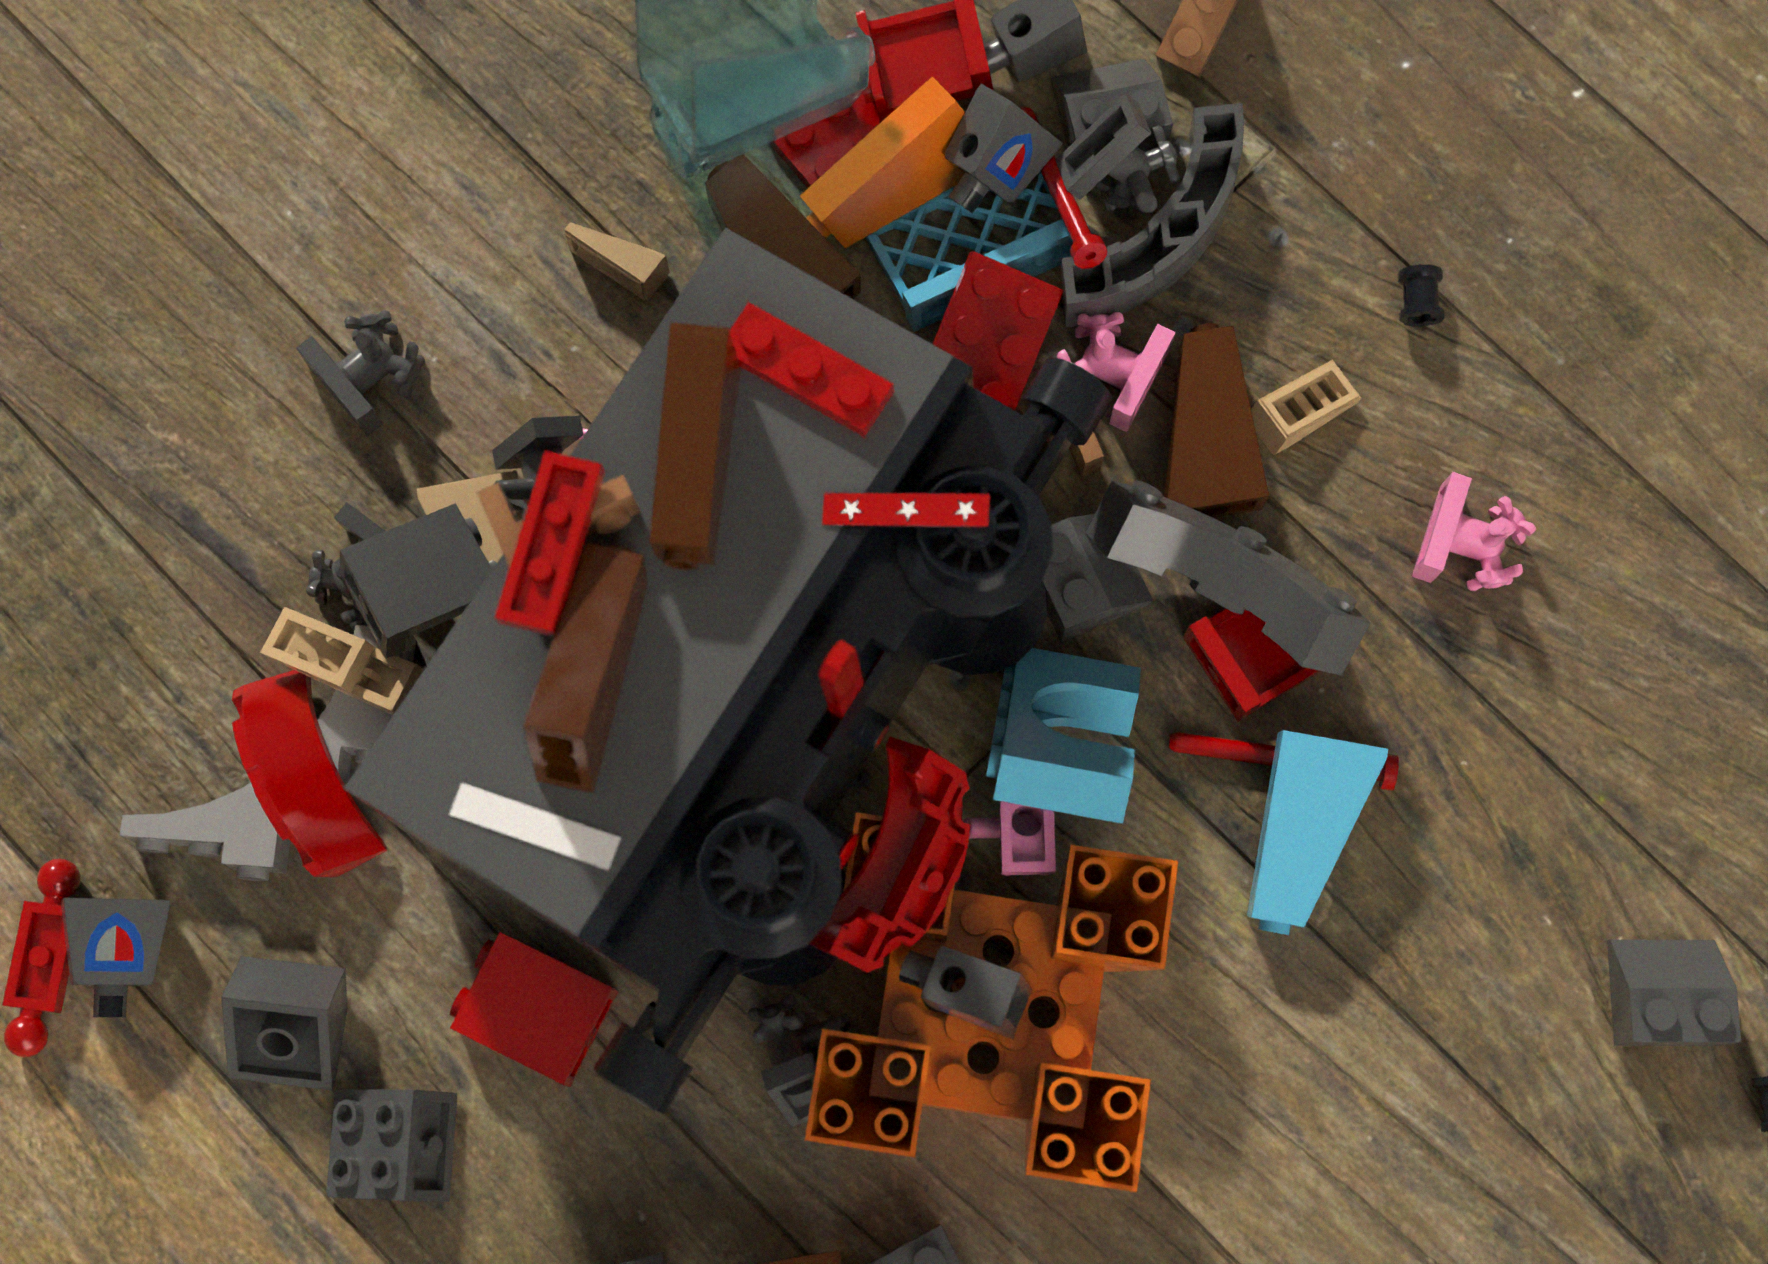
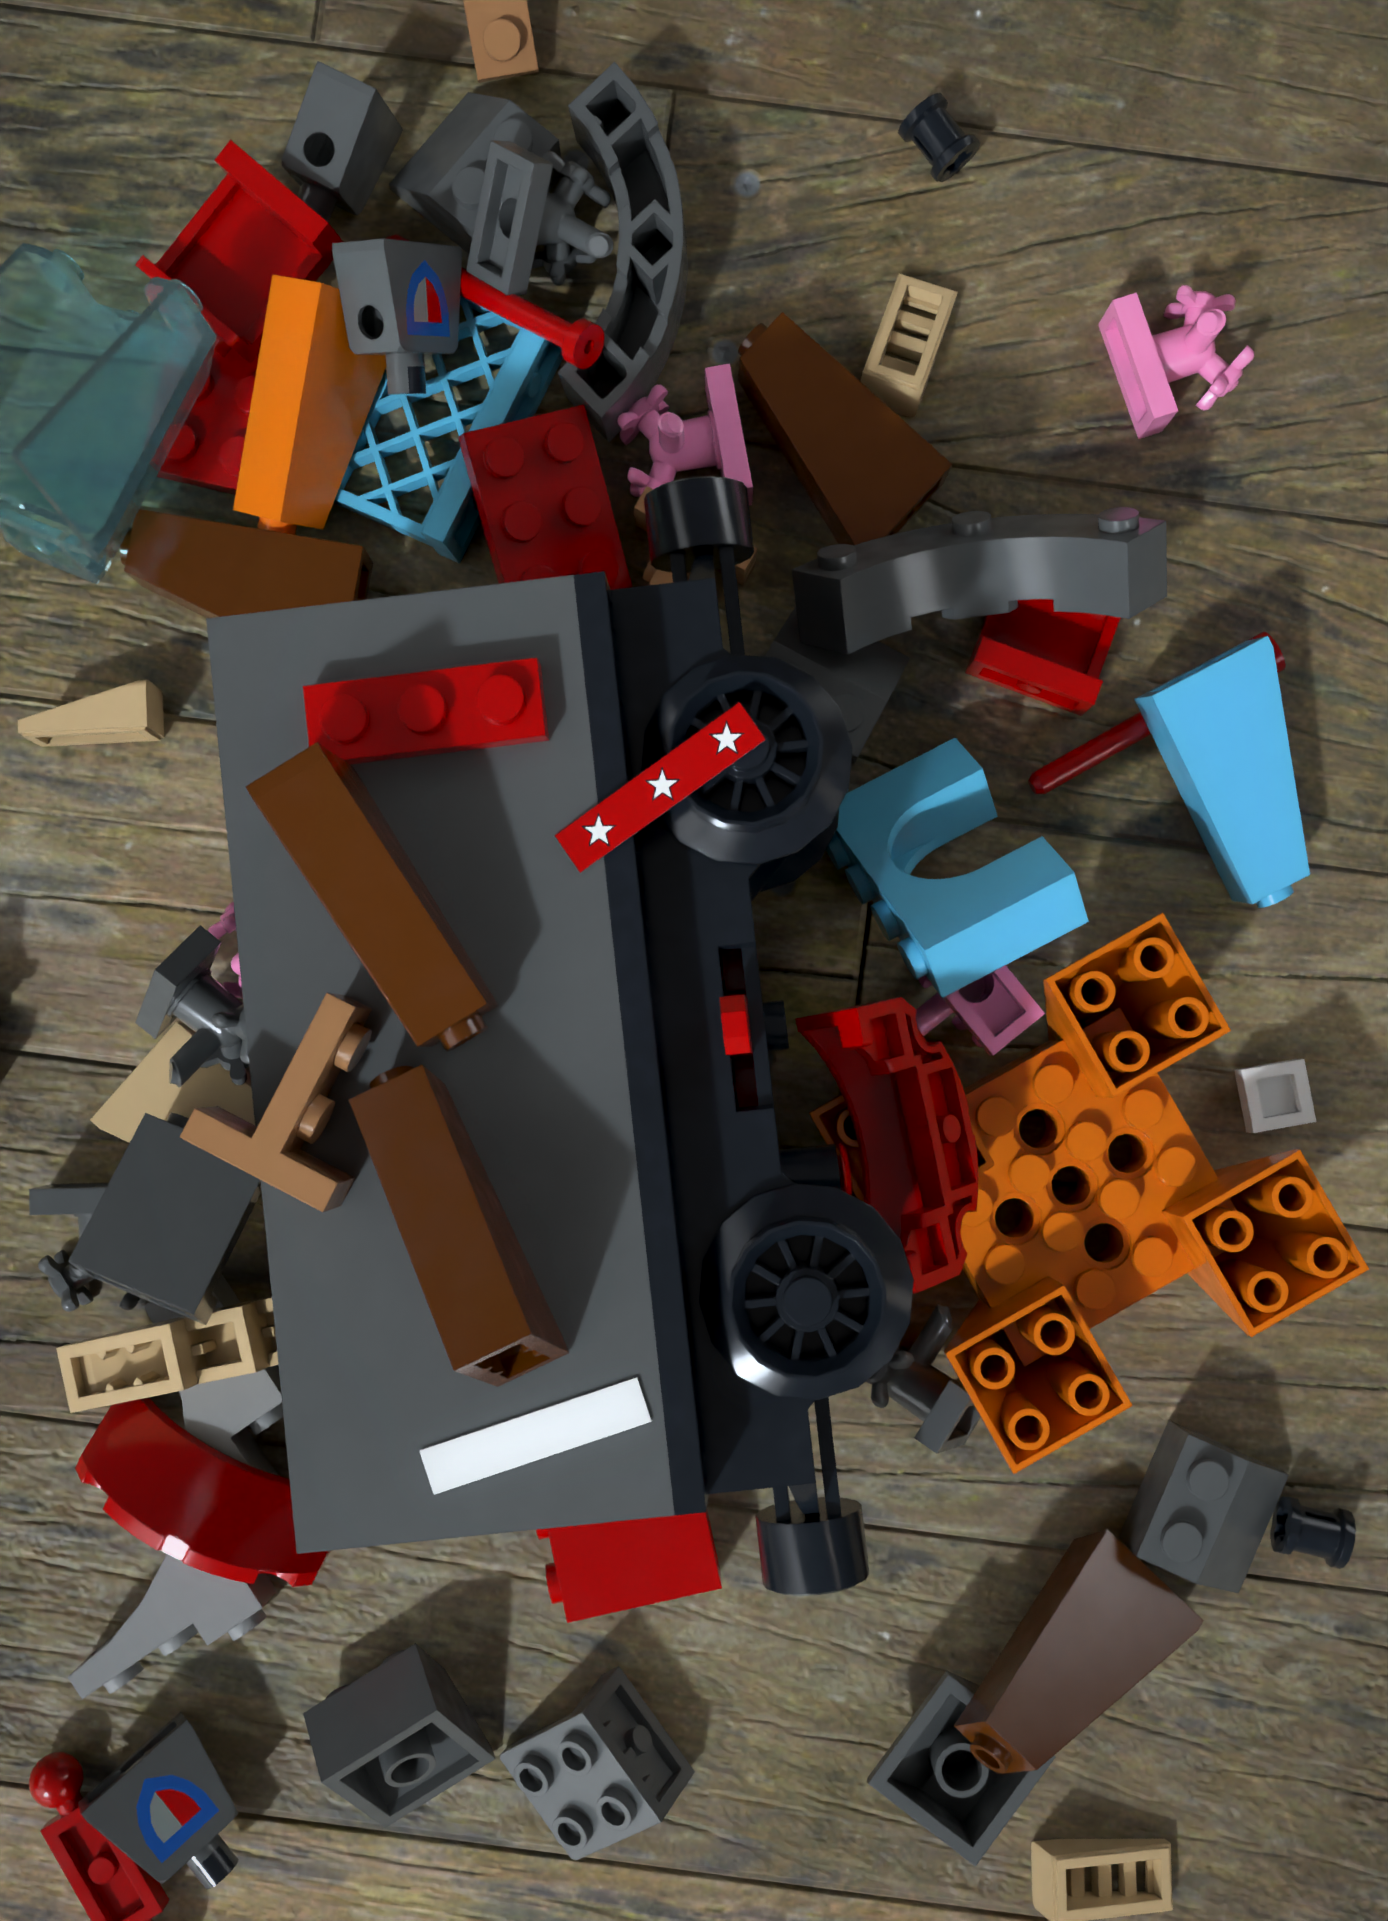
camera: 45 degrees left, 10 degrees up
(550, 543) = (311, 1136): red plate -> none
(989, 998) = (1084, 1192): dark grey torso -> none
(1174, 1060) = (1275, 1095): none -> white plate

